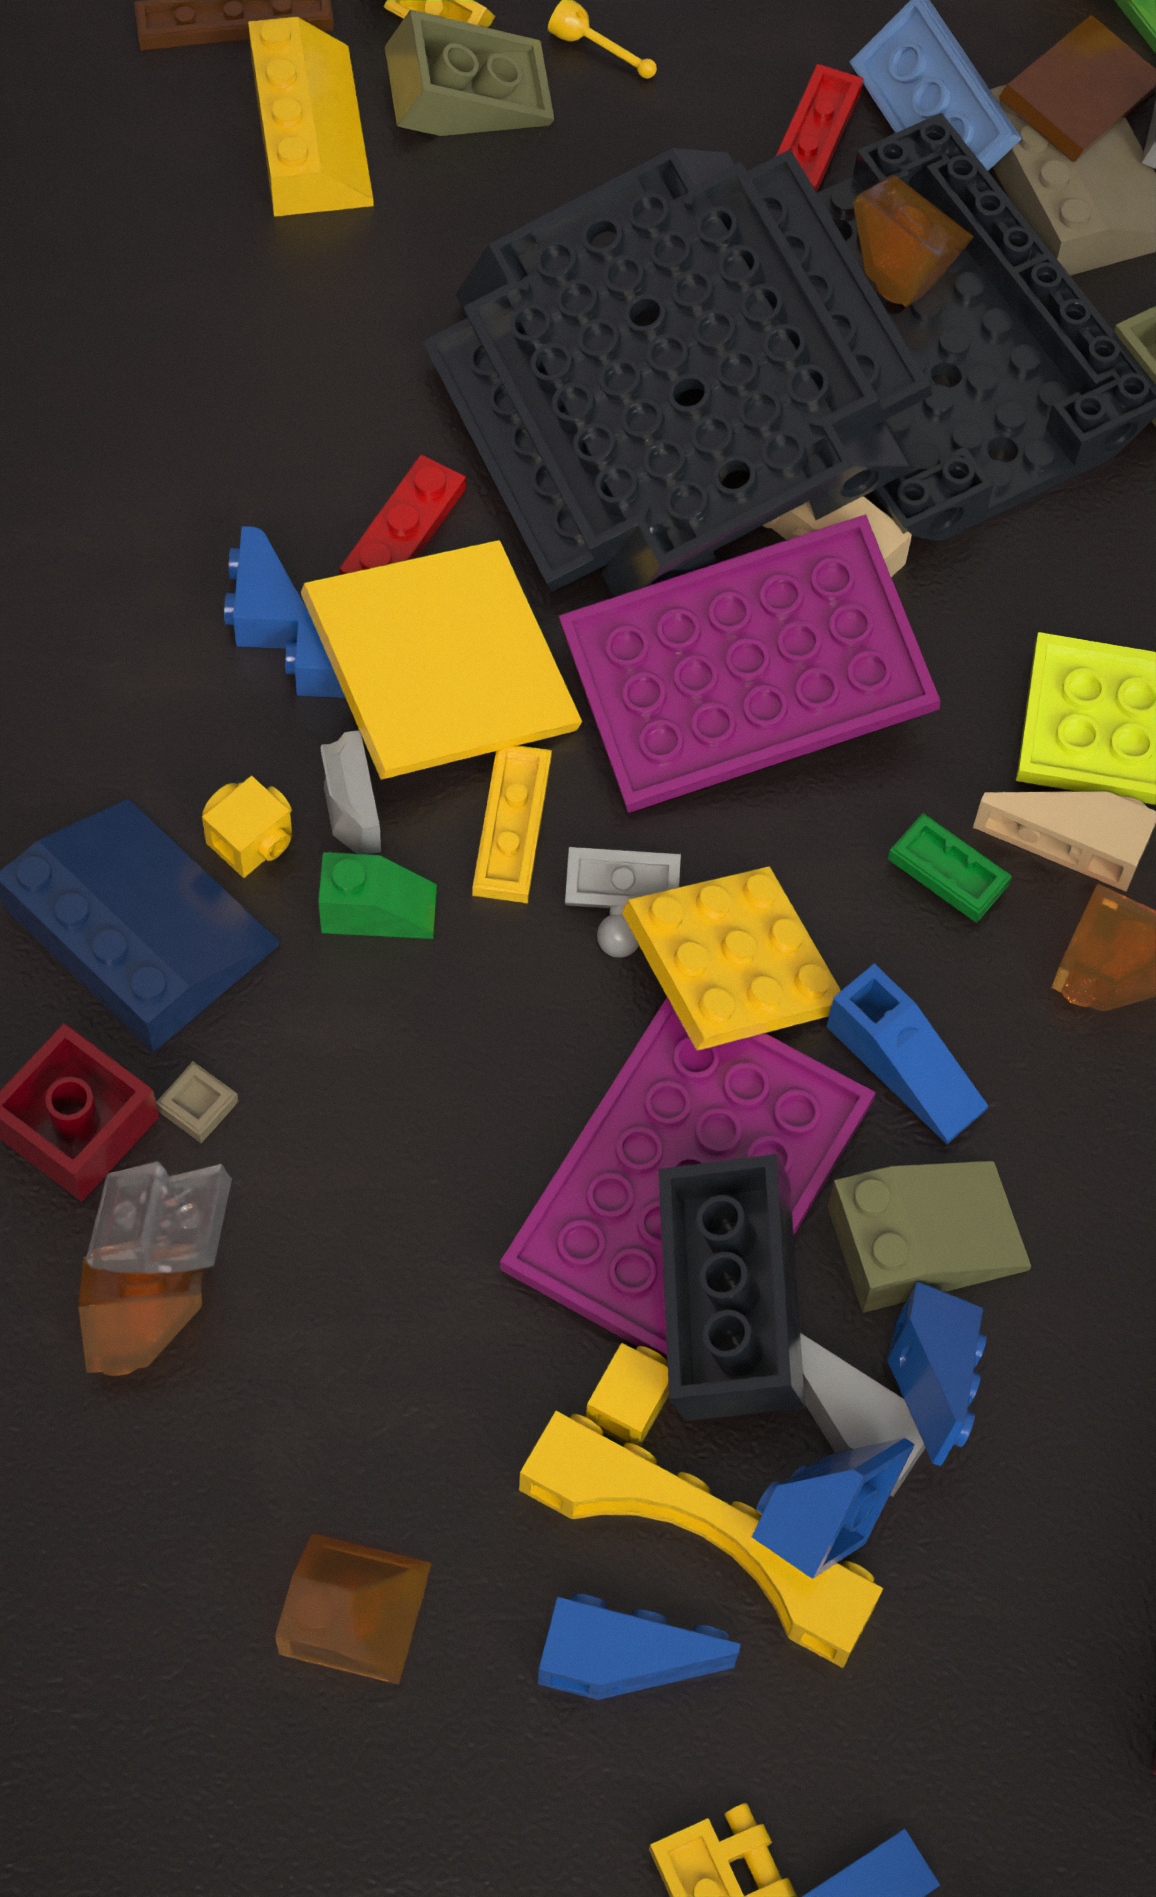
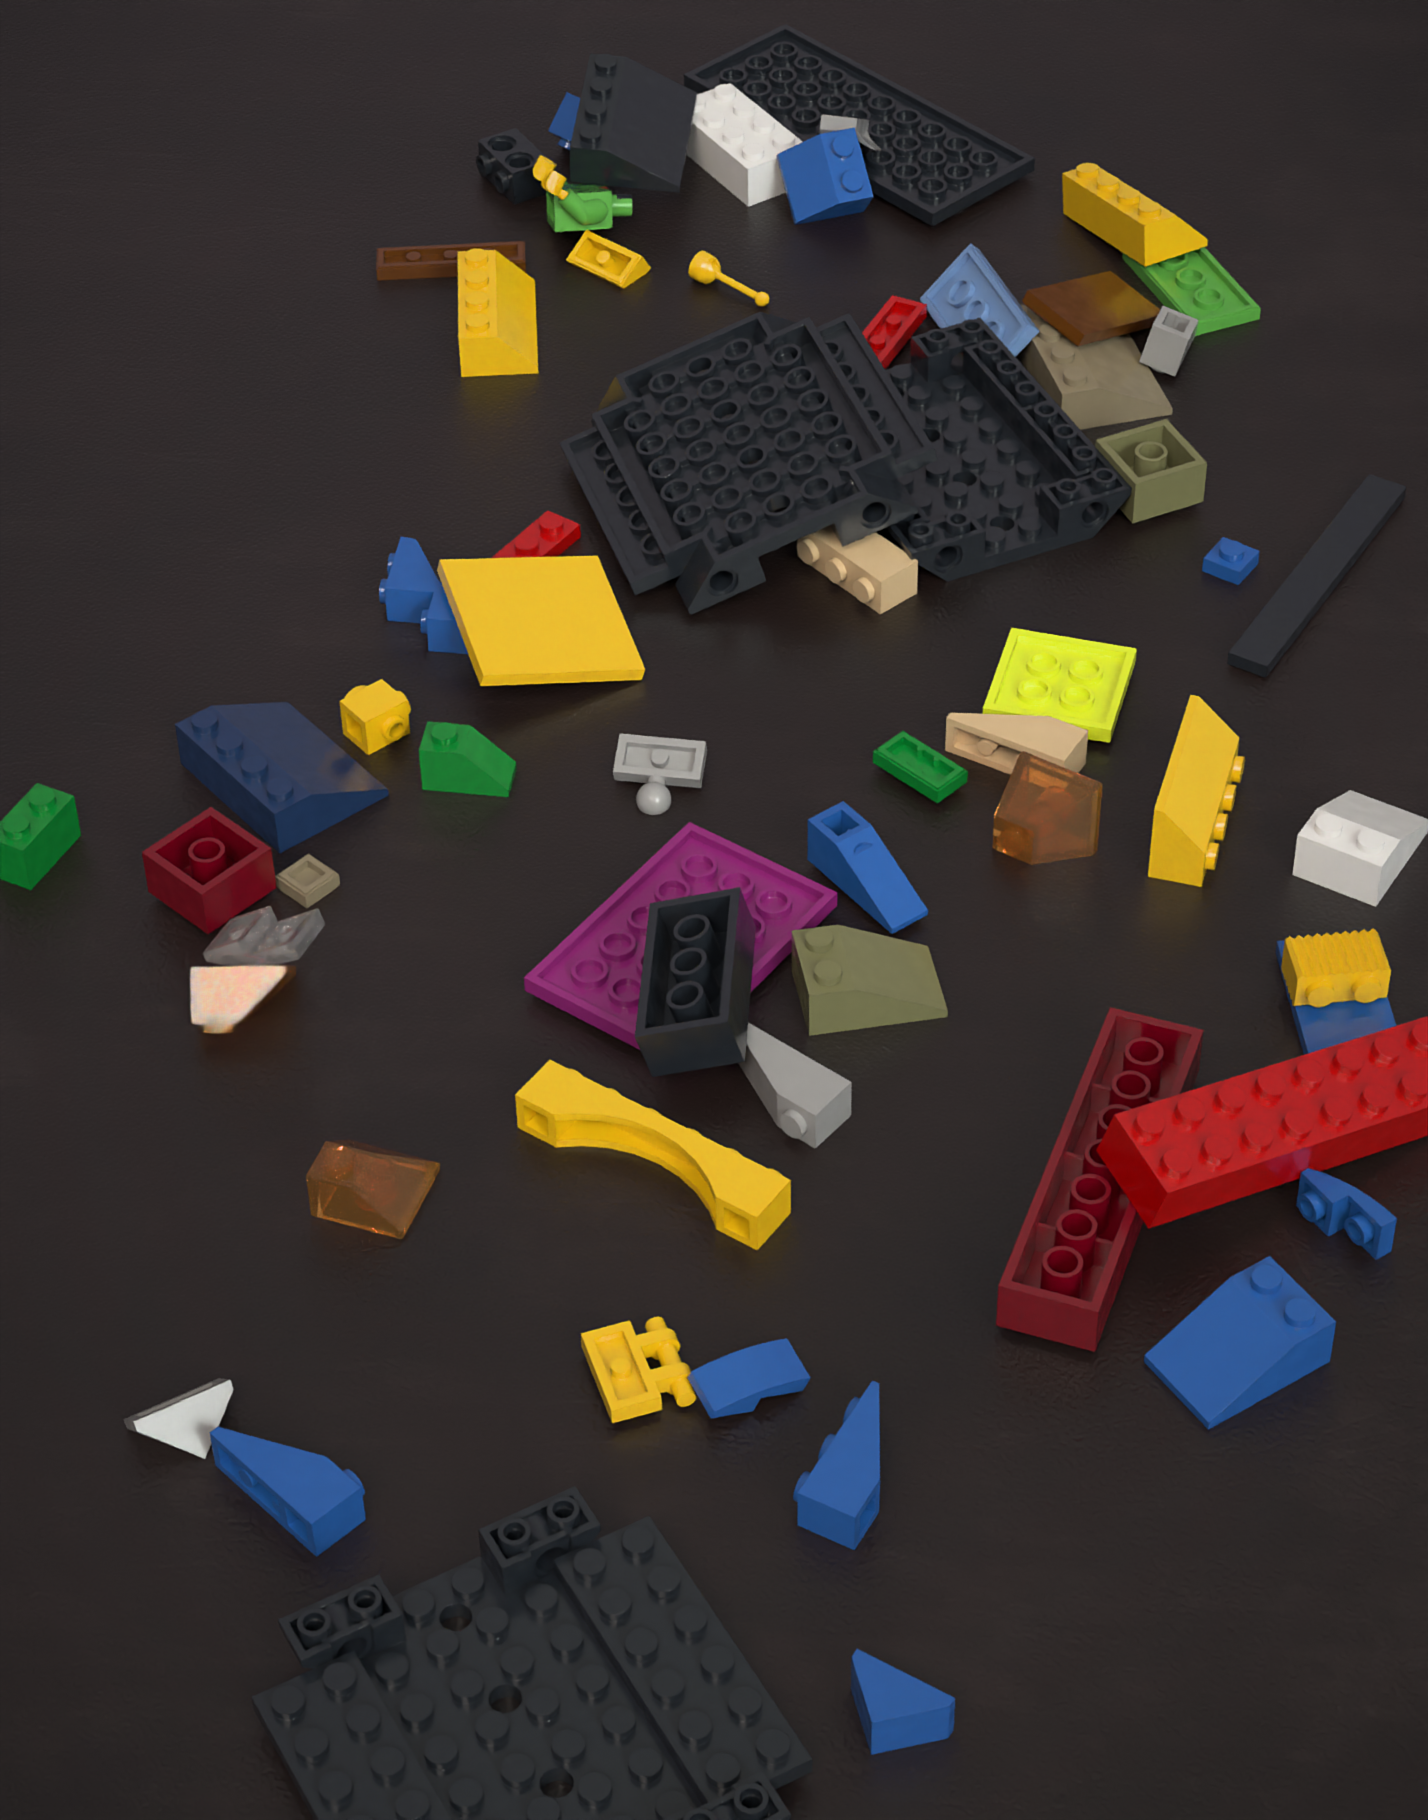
camera: 10 degrees right, 20 degrees down
(350, 794) = (456, 690): light grey slope -> none
(465, 77) = (619, 296): olive slope -> none
(512, 823) = (581, 729): yellow tile -> none
(616, 1653) = (582, 1219): blue slope -> none
(630, 1394) = (613, 1060): yellow brick -> none
(732, 957) = (735, 804): yellow plate -> none
(748, 663) = (778, 631): magenta plate -> none
(830, 1505) = (758, 1113): blue slope -> none
(905, 240) = (938, 388): clear orange slope -> none
(933, 1363) = (857, 1044): blue slope -> none

